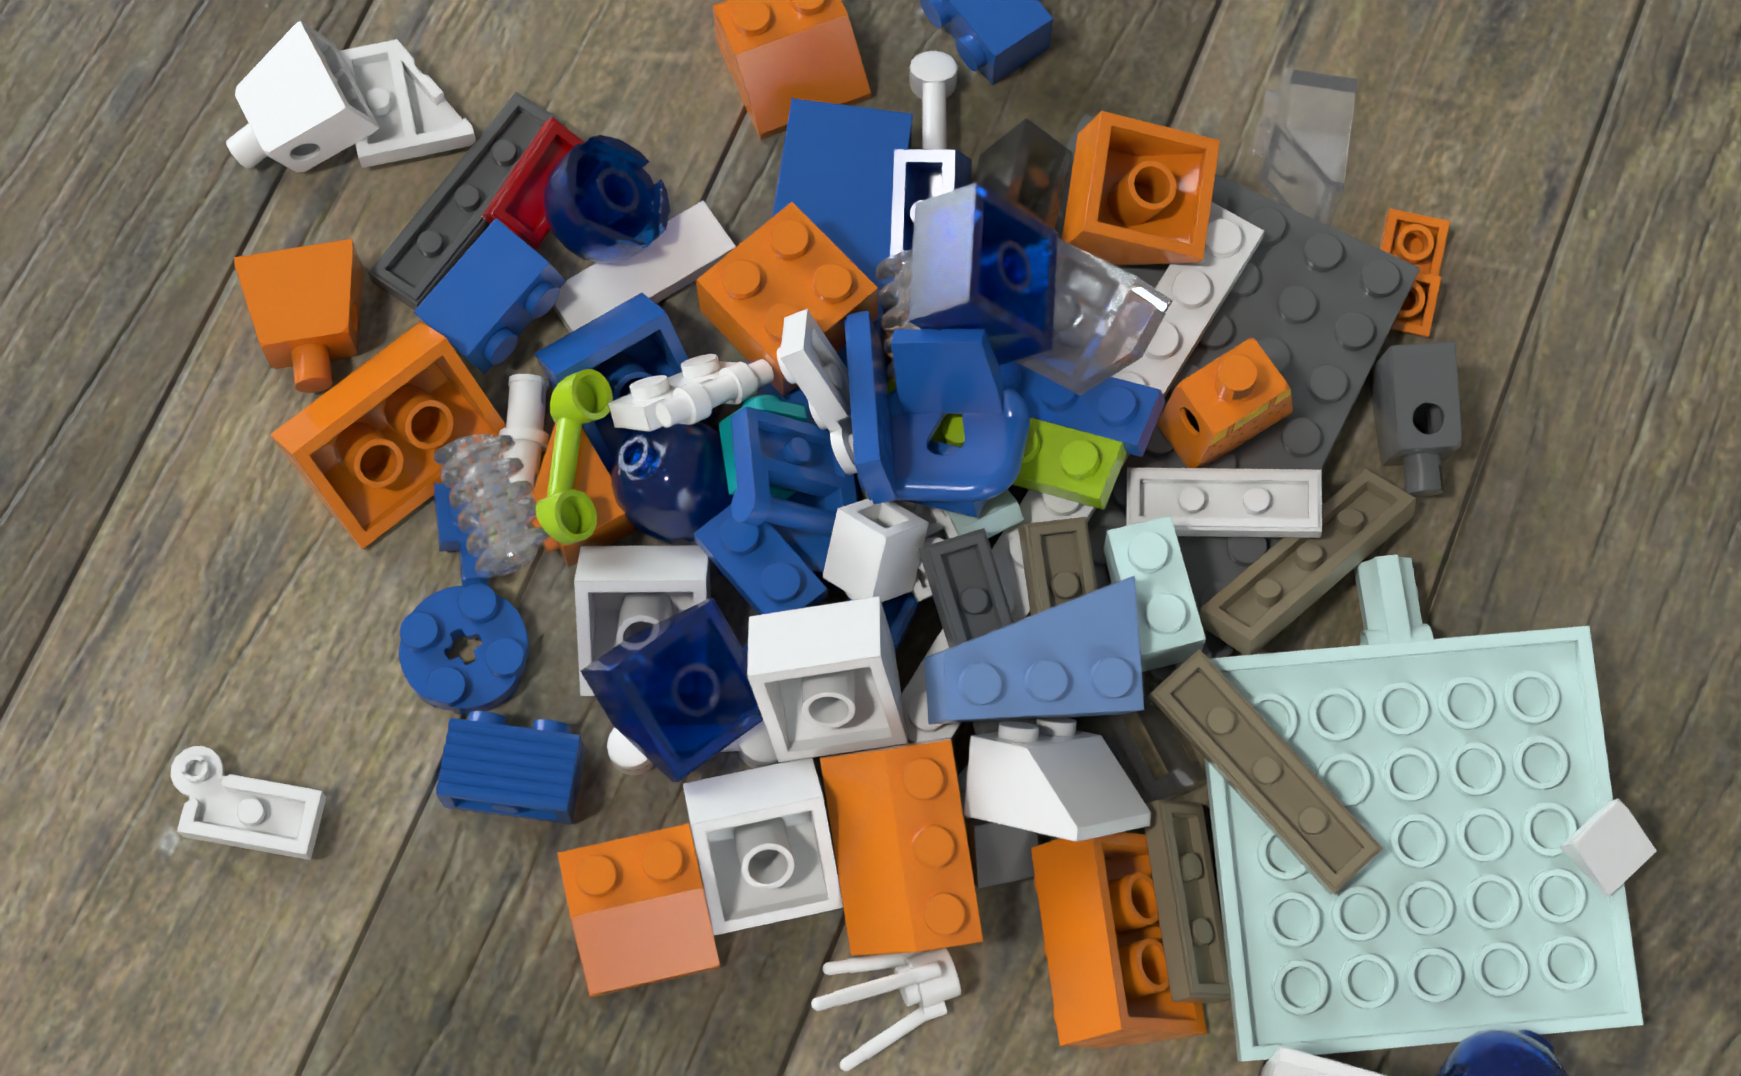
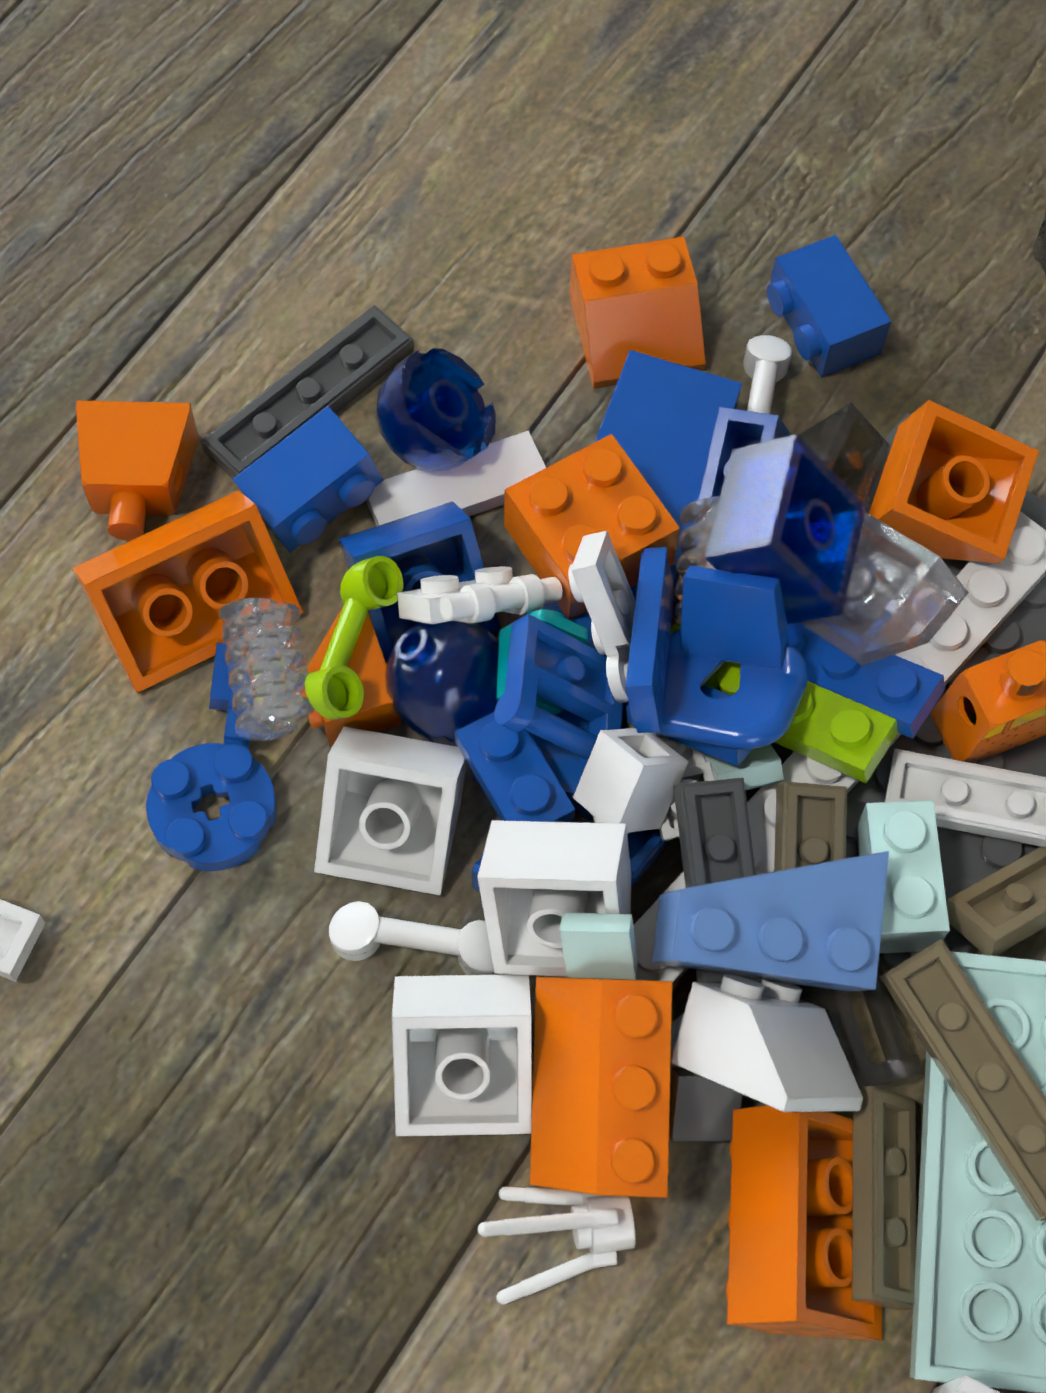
camera: 10 degrees right, 5 degrees down
(300, 104) = (171, 278): white torso -> none
(405, 104) = (261, 299): white wing -> none
(511, 768) = (229, 928): blue brick -> none
(521, 196) = (357, 397): red tile -> none
(526, 426) = (318, 602): white pin -> none
(638, 910) = (324, 1095): orange slope -> none
(678, 689) = (408, 881): clear blue slope -> none
(875, 718) = (599, 945): none -> light aqua tile

